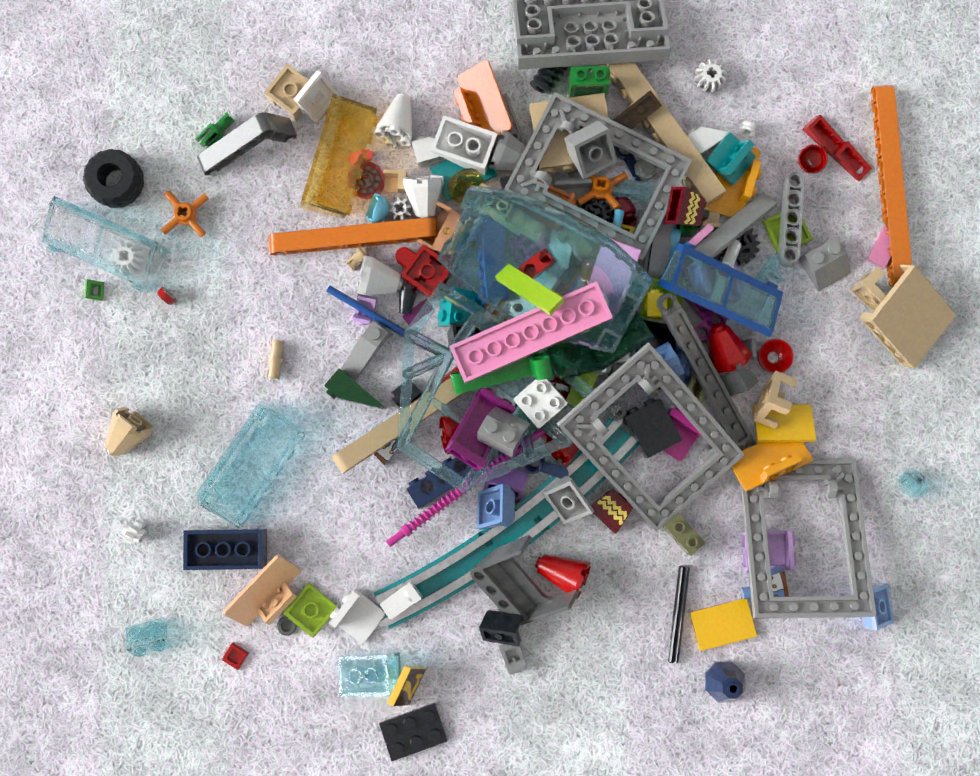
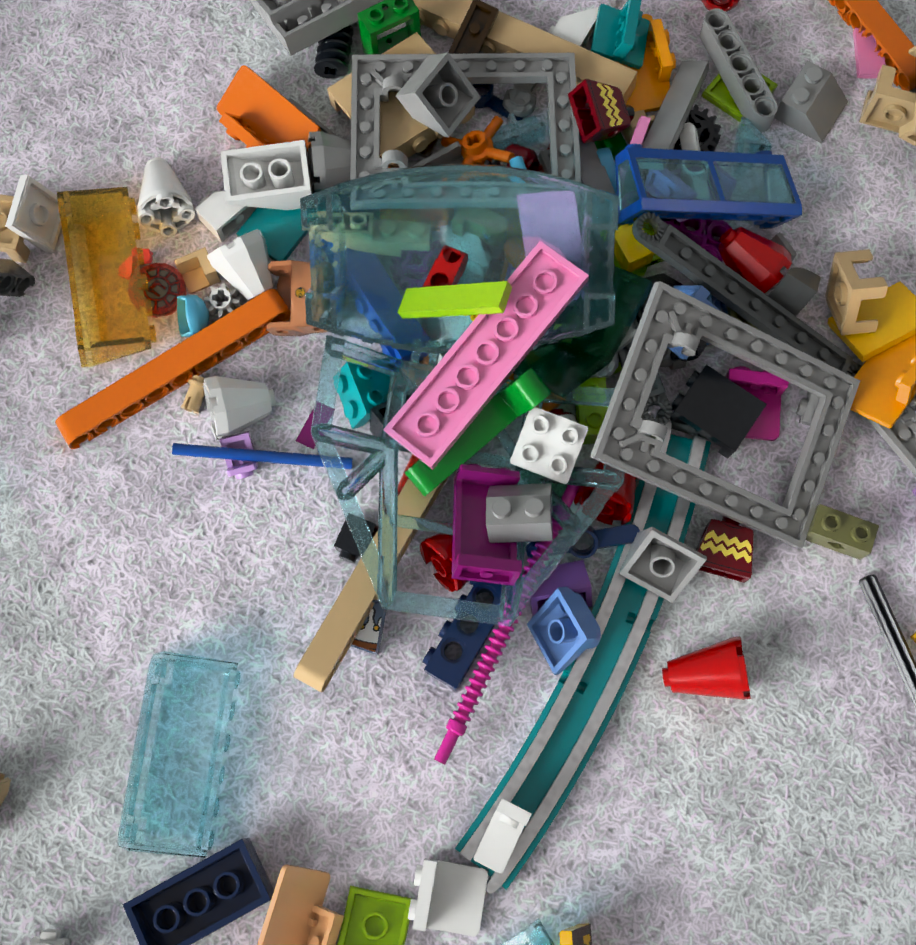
camera: 25 degrees left, 10 degrees down
(275, 359) = (145, 586): tan pin -> none
(346, 389) = (272, 575): dark green slope -> none
(365, 350) = (267, 508): light grey slope -> none
(406, 299) = (291, 413): black cone -> none
(422, 269) = (291, 362): red brick -> none
(462, 181) = (287, 230): clear yellow tile -> none
(501, 628) = (667, 800): black panel -> none
(513, 589) = (654, 733): dark grey windscreen -> none
(513, 658) = (706, 834): light grey bracket -> none
(784, 352) = (823, 232): red piece -> none

